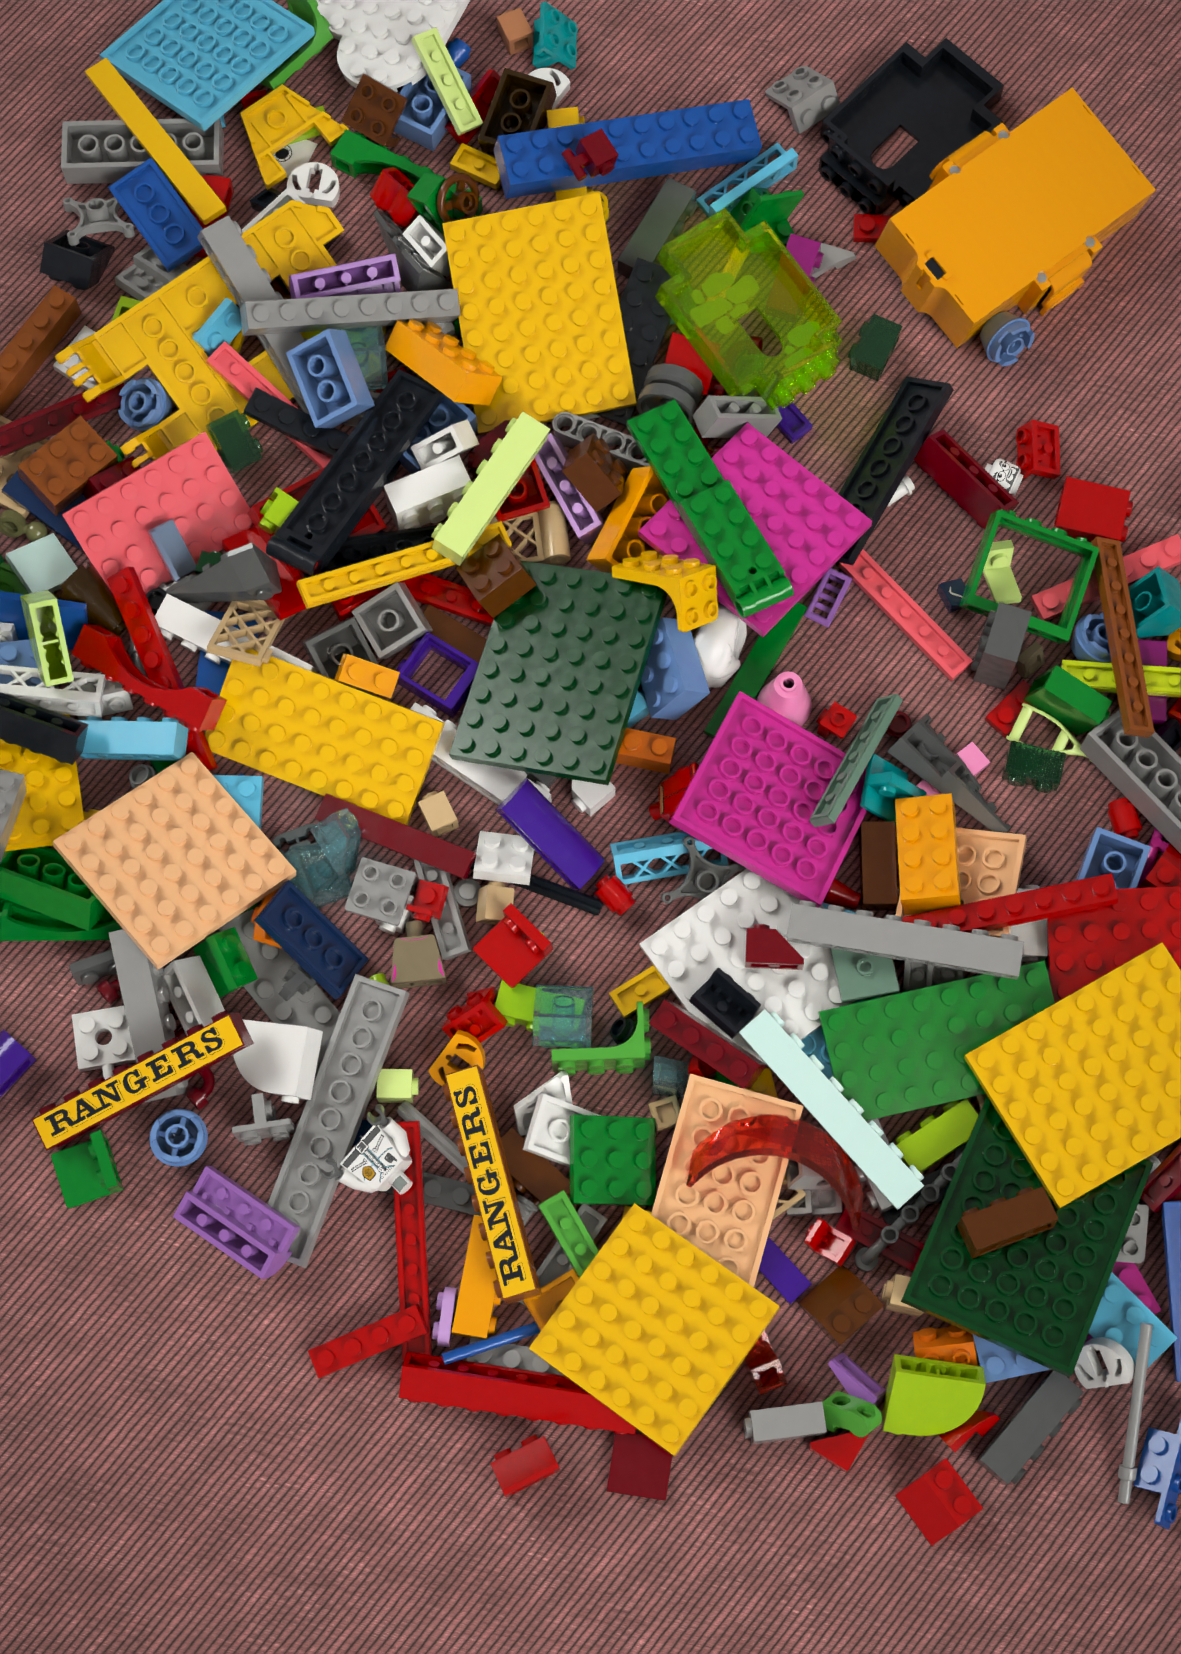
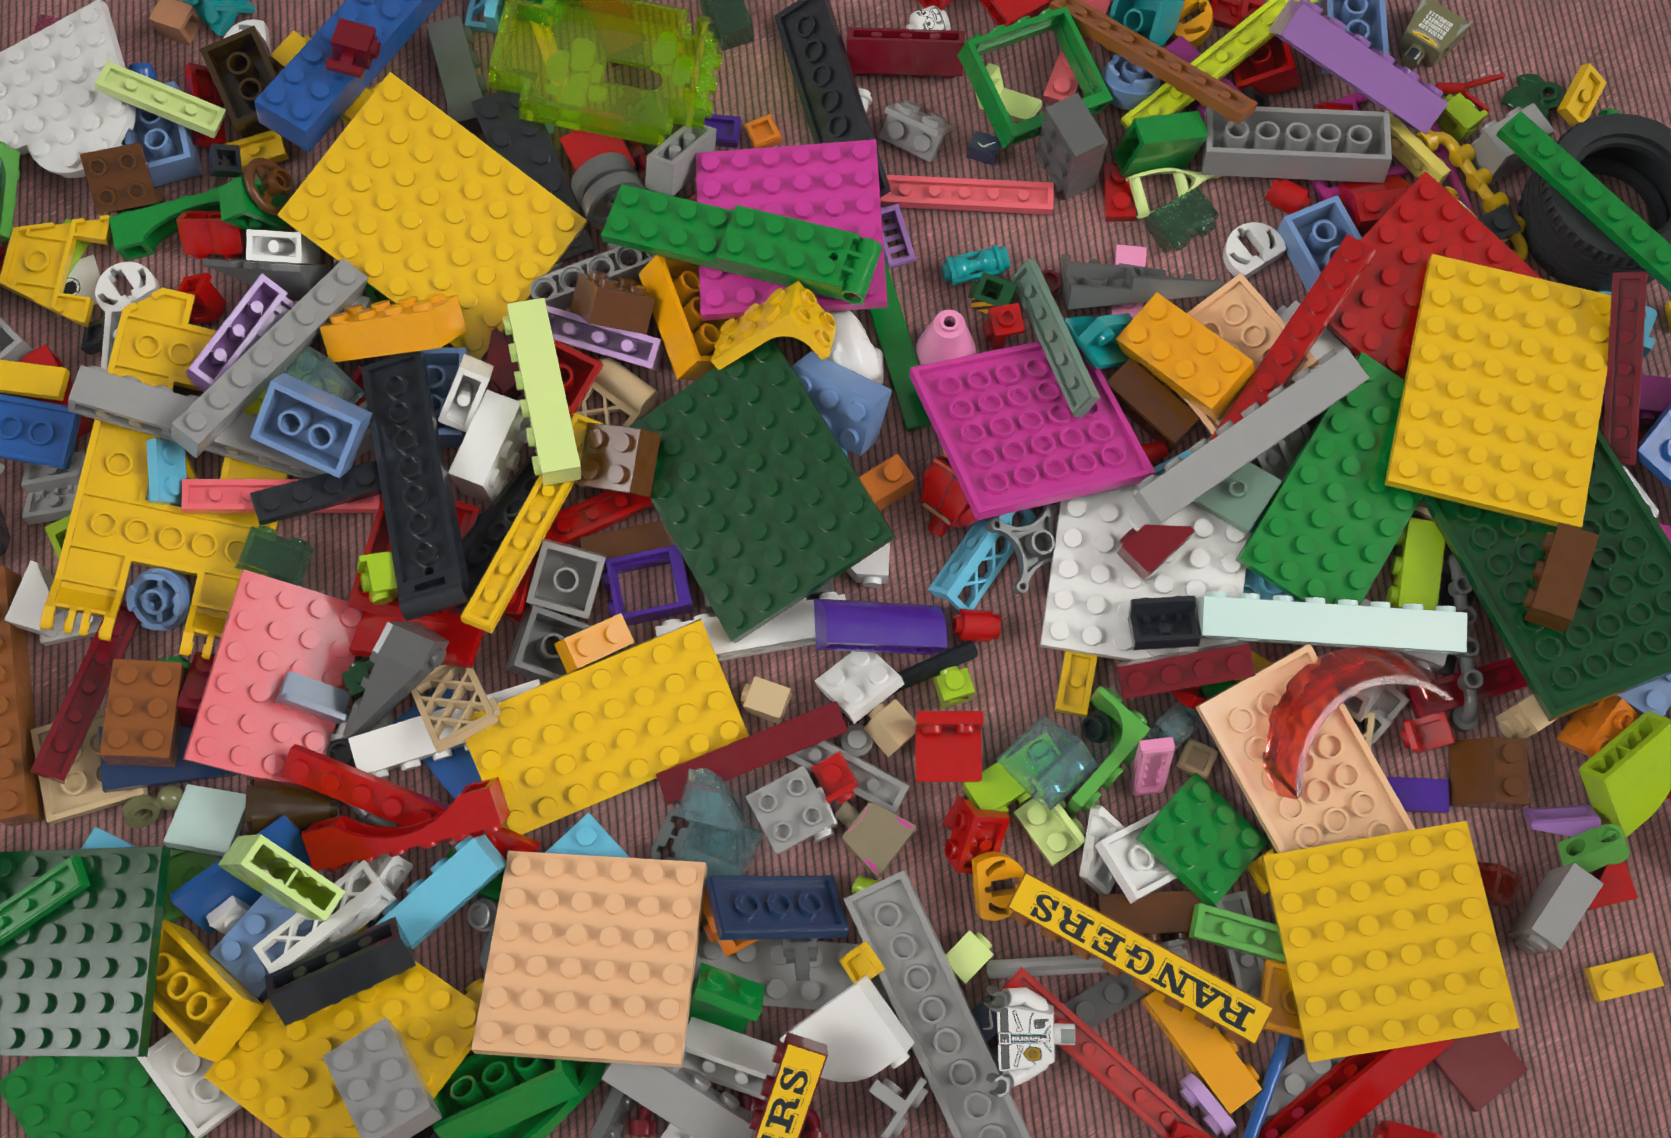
camera: 45 degrees left, 0 degrees up
(70, 333) = (30, 600): none -> white slope
(329, 1022) = (861, 962): none -> yellow tile
(353, 239) = (208, 302): none -> red brick
(449, 158) = (224, 163): none -> black piece
(528, 1064) = (1051, 830): none -> yellowish green bracket
(560, 918) = (954, 686): none -> lime brick
(624, 1082) = (1151, 766): none -> bright pink plate
(790, 1513) = (1624, 977): none -> yellow plate
(816, 449) = (763, 132): none -> orange tile
(851, 687) = (991, 286): none -> dark green brick
(873, 672) = (989, 260): none -> teal piece
(919, 538) = (914, 129): none -> light grey bracket
(1077, 825) = (1237, 257): none -> white piece

